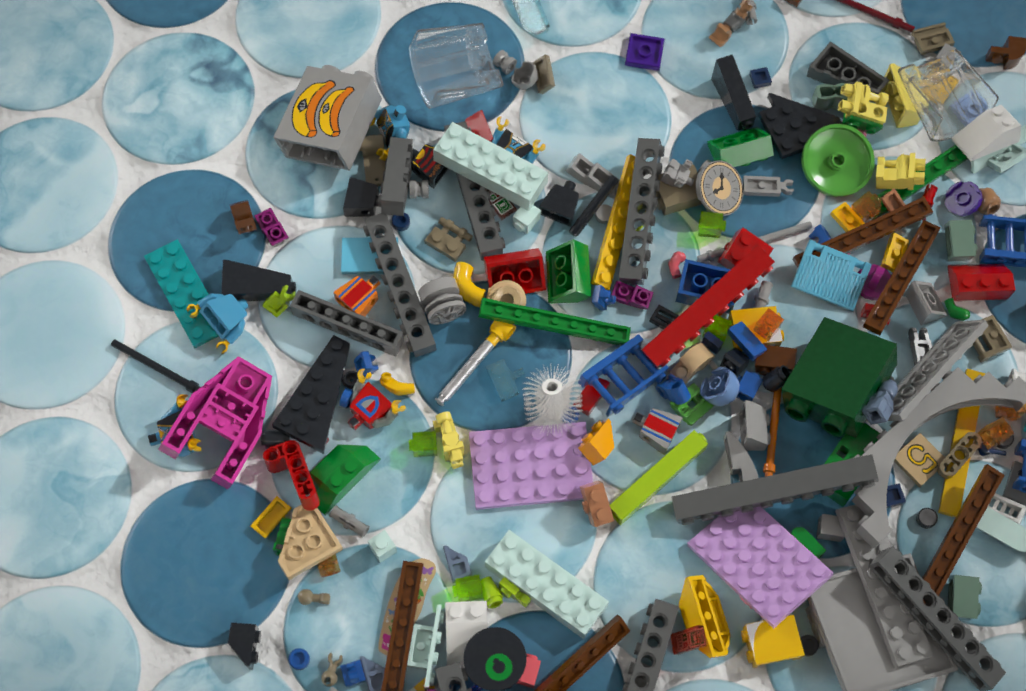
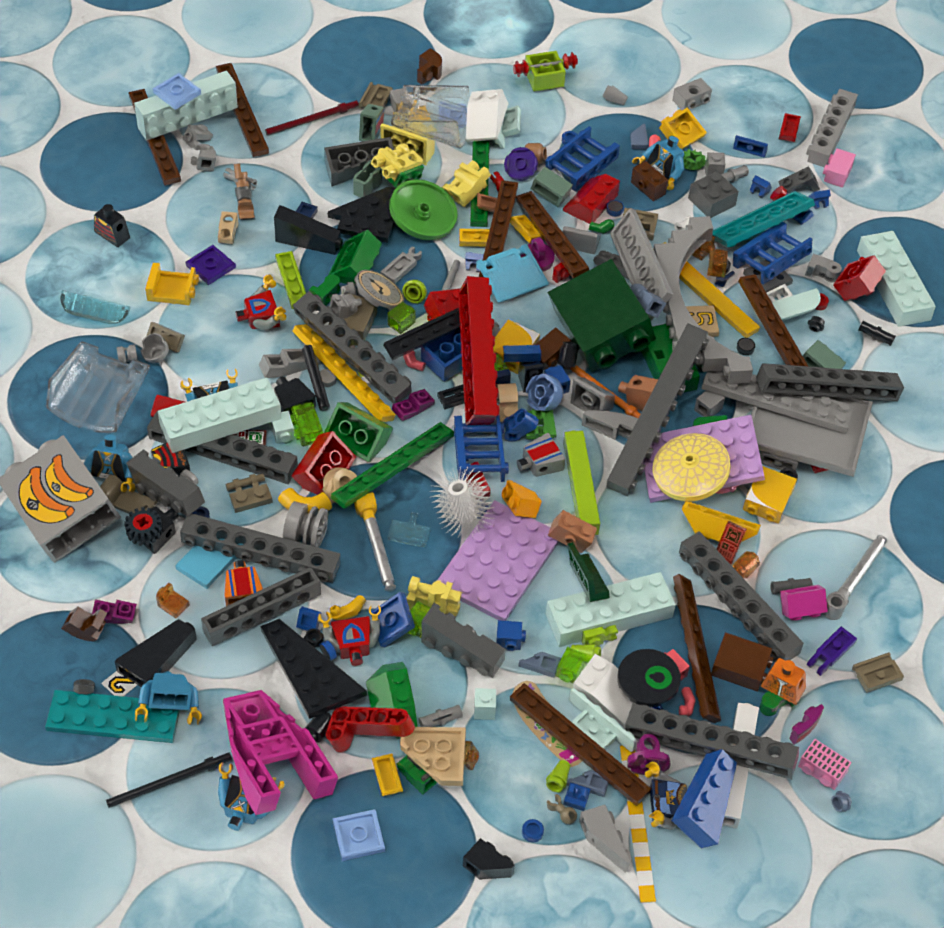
camera: 55 degrees left, 15 degrees down
(193, 255) = (84, 686): none -> dark grey tile
(206, 532) = (358, 835): none -> light blue tile
(214, 277) = (118, 684): none -> sticker
(277, 302) = (194, 645): lime plate -> none
(306, 597) = (482, 789): dark tan arm -> none
(309, 258) = (171, 601): none -> clear orange bracket
(346, 197) = (149, 531): none -> black wheel
(359, 646) = (558, 776): none -> lime cone
(407, 424) = (394, 619): none -> blue tile
(424, 490) = (461, 642): none -> dark grey wedge
(461, 522) = (510, 635): none -> blue brick
(544, 231) = (306, 423): none -> clear neon green brick
(558, 544) = (587, 575): none -> dark green fence
(597, 40) = (171, 286): none -> yellow panel
(602, 297) = (400, 421): blue tile -> none
(629, 118) = (261, 308): none -> torso
(680, 667) = (746, 564): none -> clear orange brick
(681, 118) = (290, 276): none -> lime tile
(689, 35) = (227, 228): none -> tan leg
(689, 150) = (327, 288): none -> green leg
(694, 254) = (423, 334): none -> black plate
(738, 557) = (691, 467): none -> light yellow dish
(748, 215) = (414, 291): none -> lime brick
(768, 324) = (522, 329): clear orange brick -> none
(789, 457) = (638, 390): none -> nougat torso
(867, 206) = (477, 216): clear orange brick -> none
(899, 52) = (370, 117): none -> sand green torso
(959, 447) = (714, 301): dark tan beam -> none
(988, 306) = (615, 208): none -> tile
(1007, 563) = (816, 324): none -> black plate

